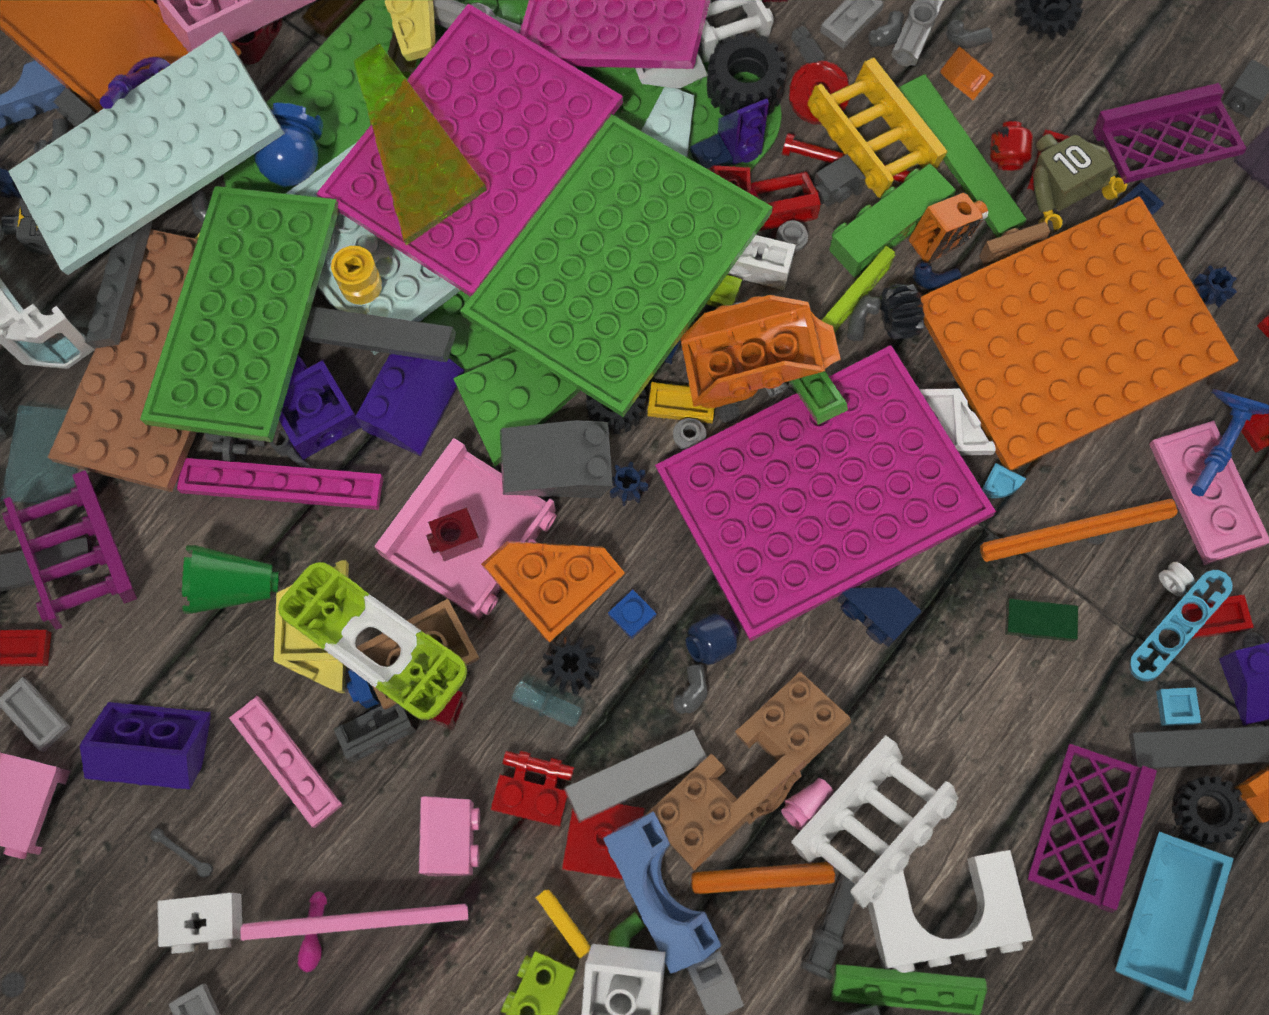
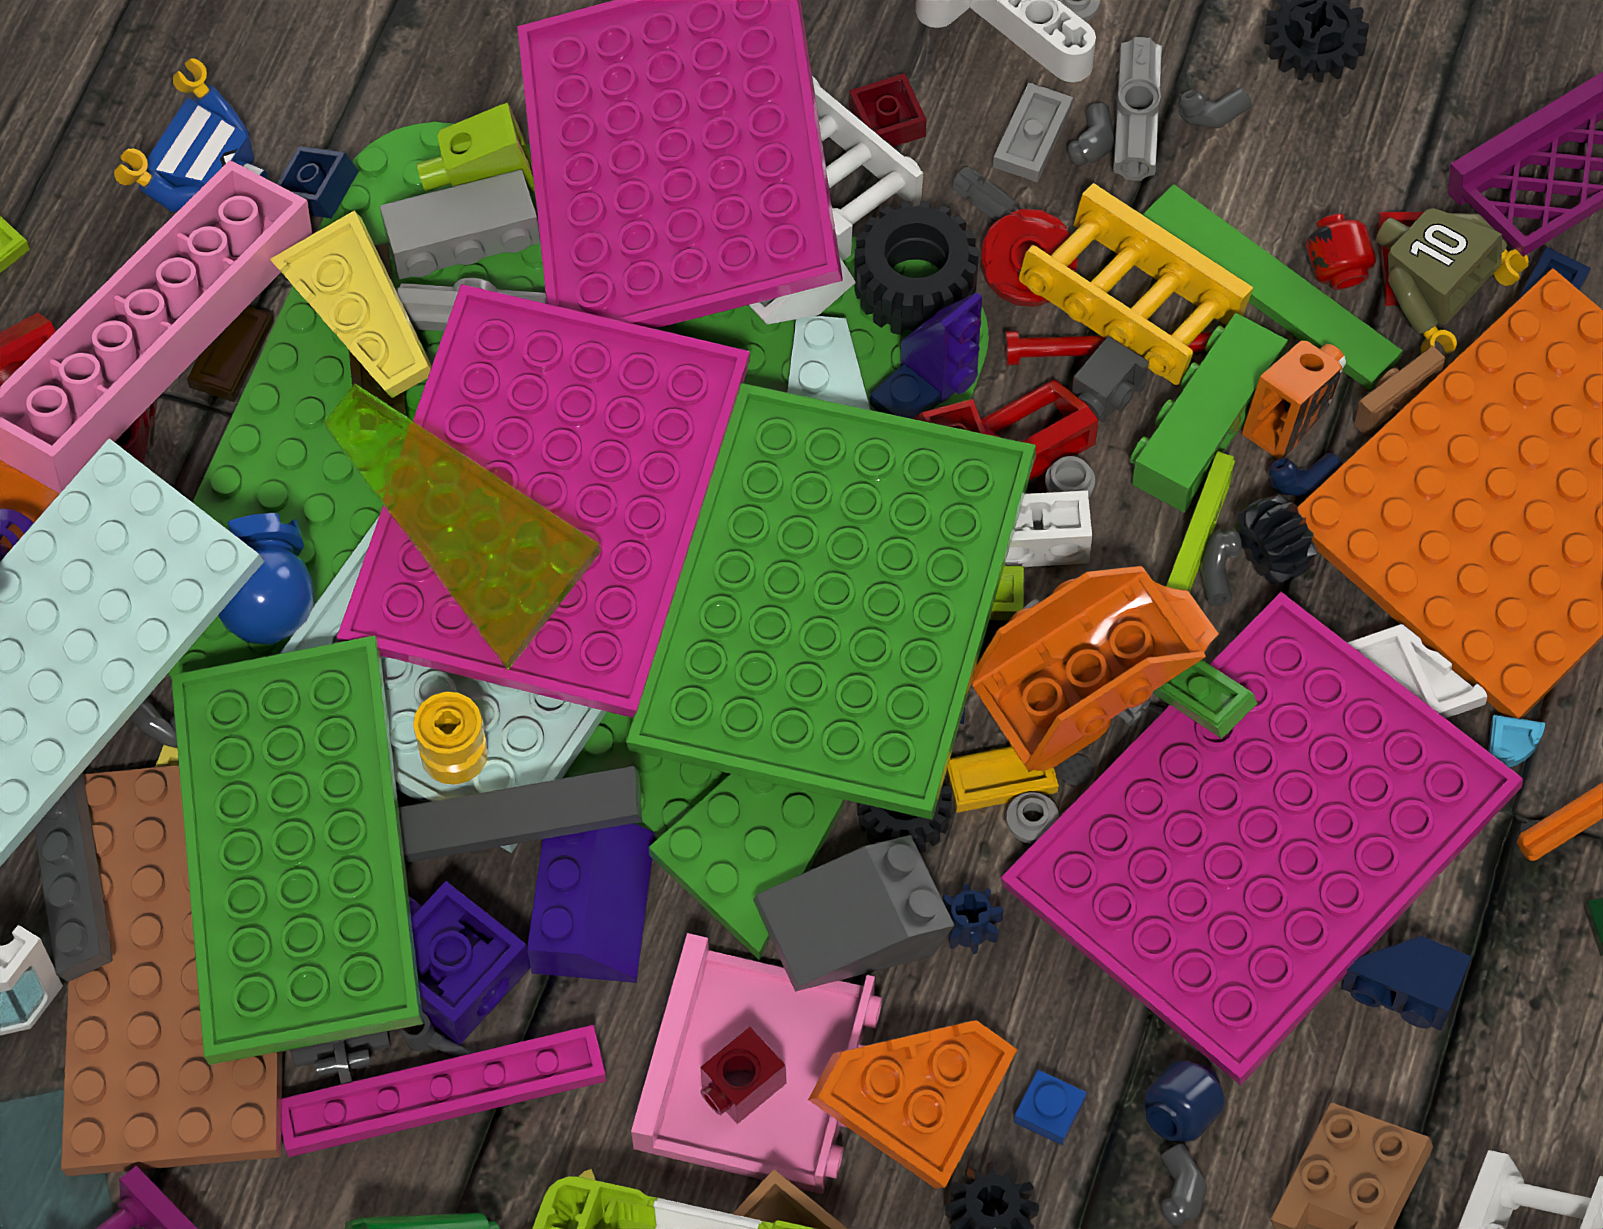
camera: 20 degrees left, 10 degrees down
(966, 73) = (1234, 164): orange panel -> none

